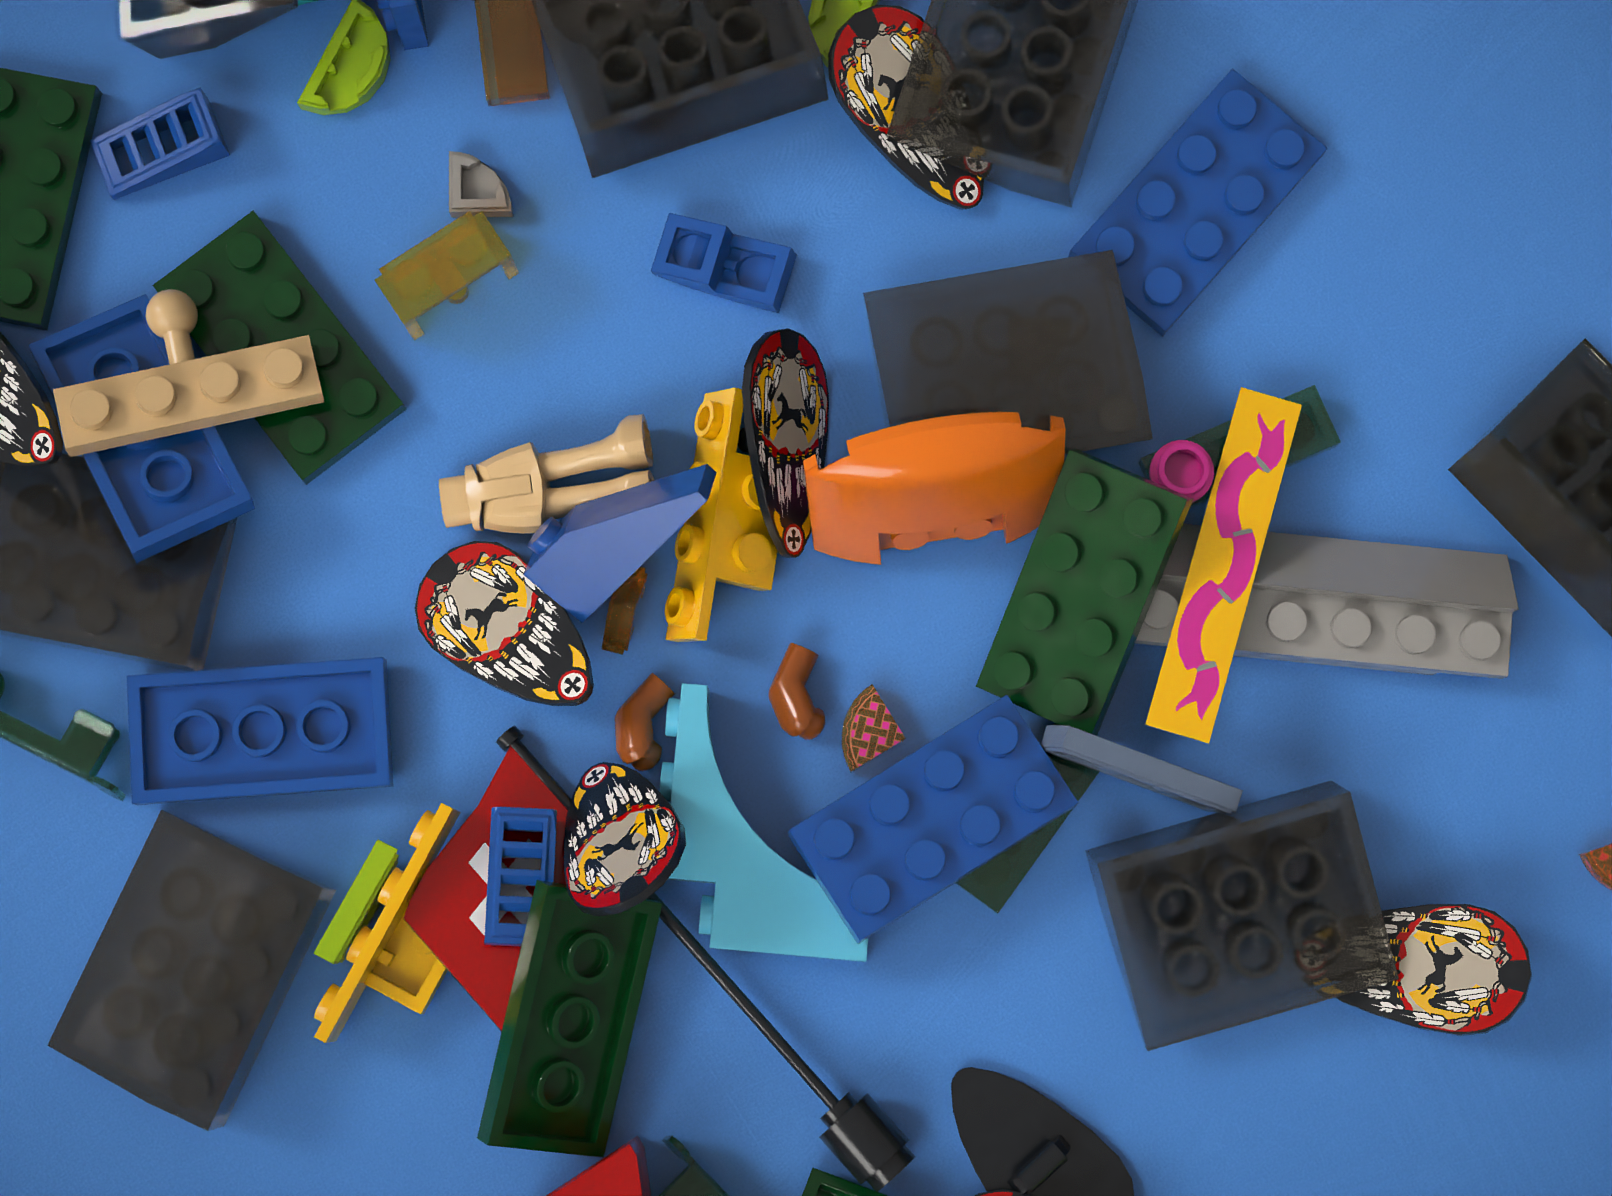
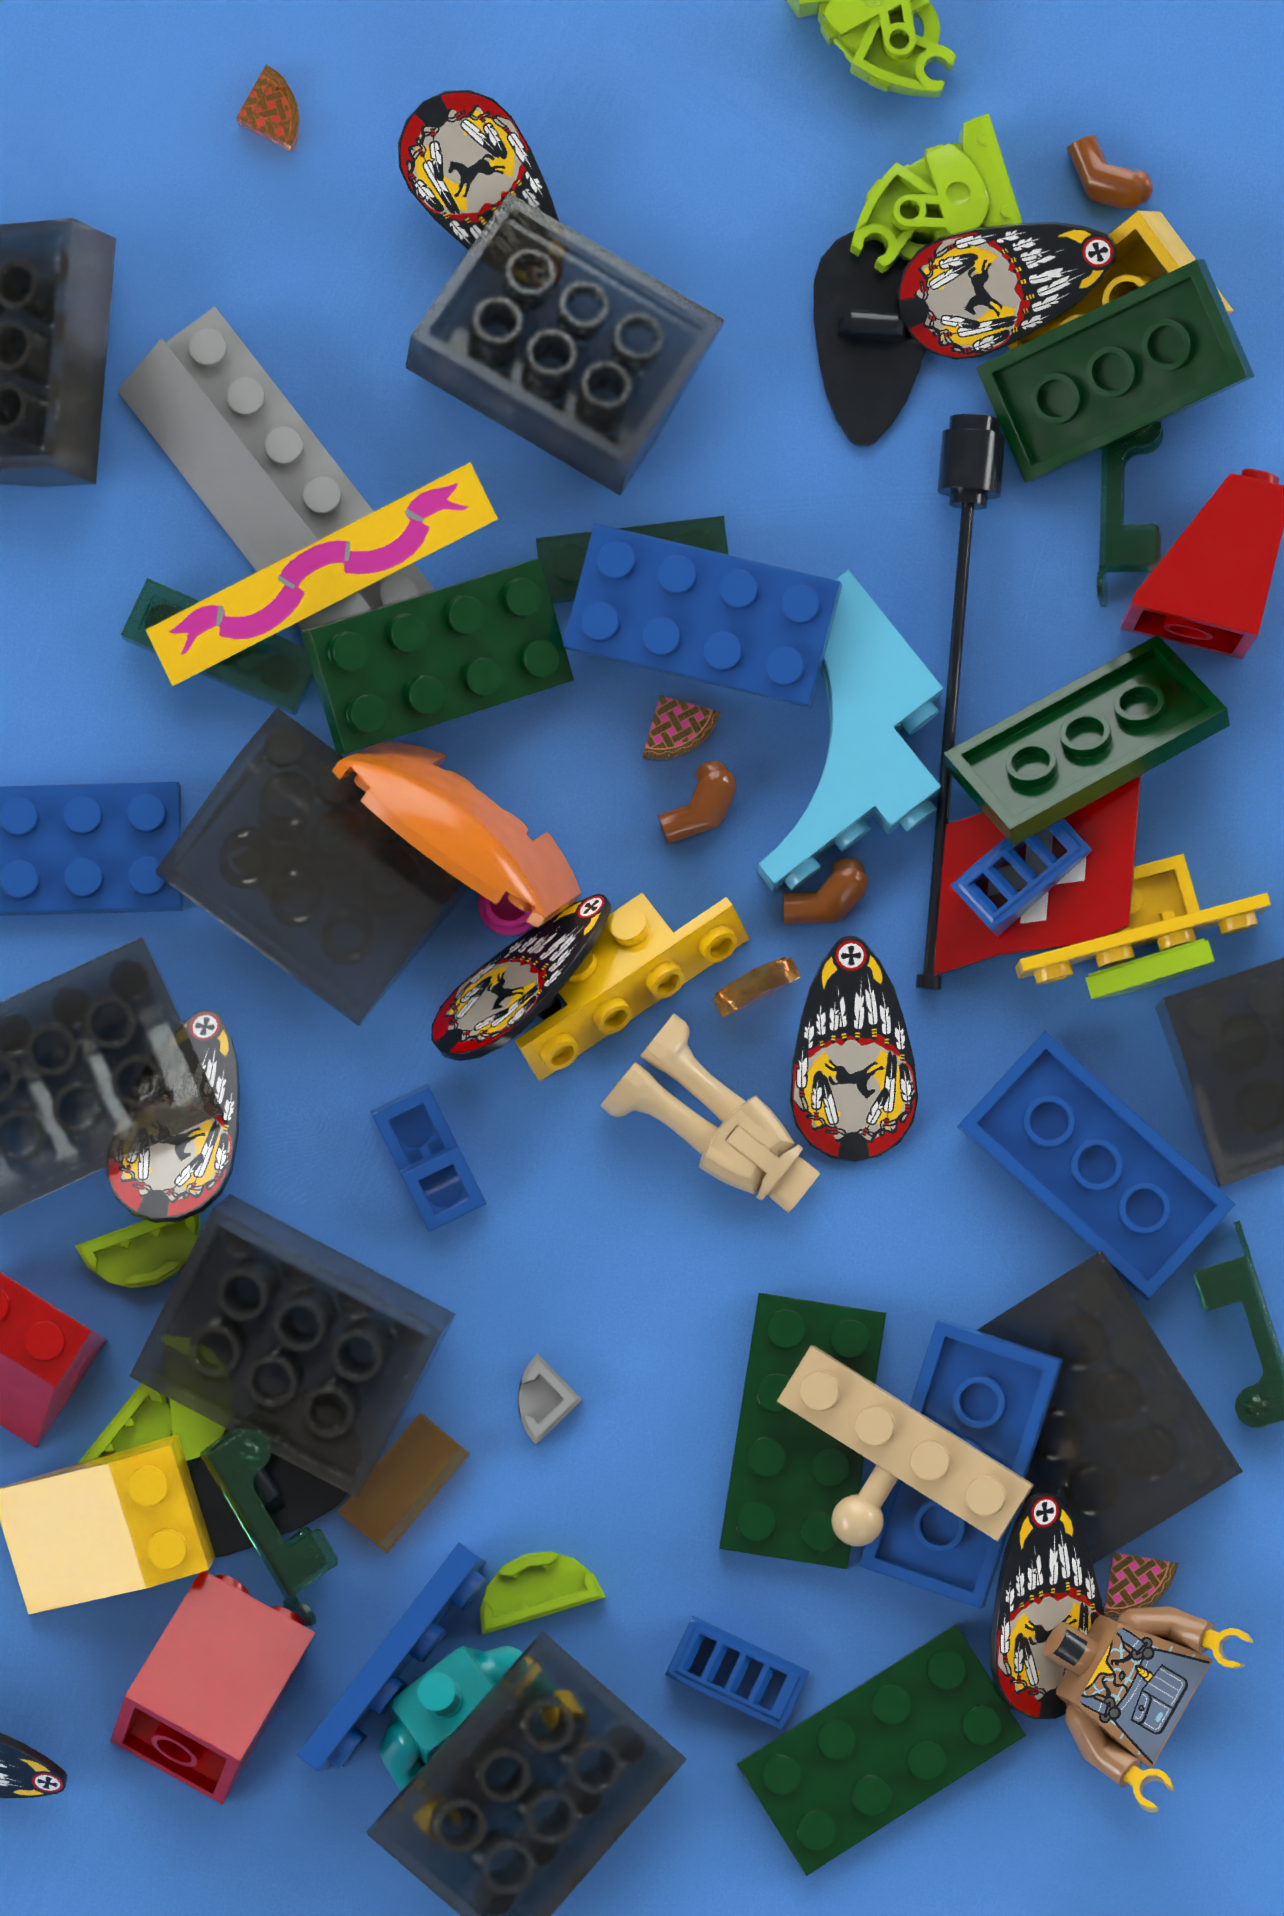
camera: 135 degrees left, 0 degrees up
(443, 268) = (631, 1356): clear yellow window -> none
(611, 537) = (716, 1029): slope -> none
(618, 840) = (930, 815): shield -> none
(1140, 769) = (528, 502): sand blue tile -> none
(1183, 468) = (279, 668): dark pink plate -> none

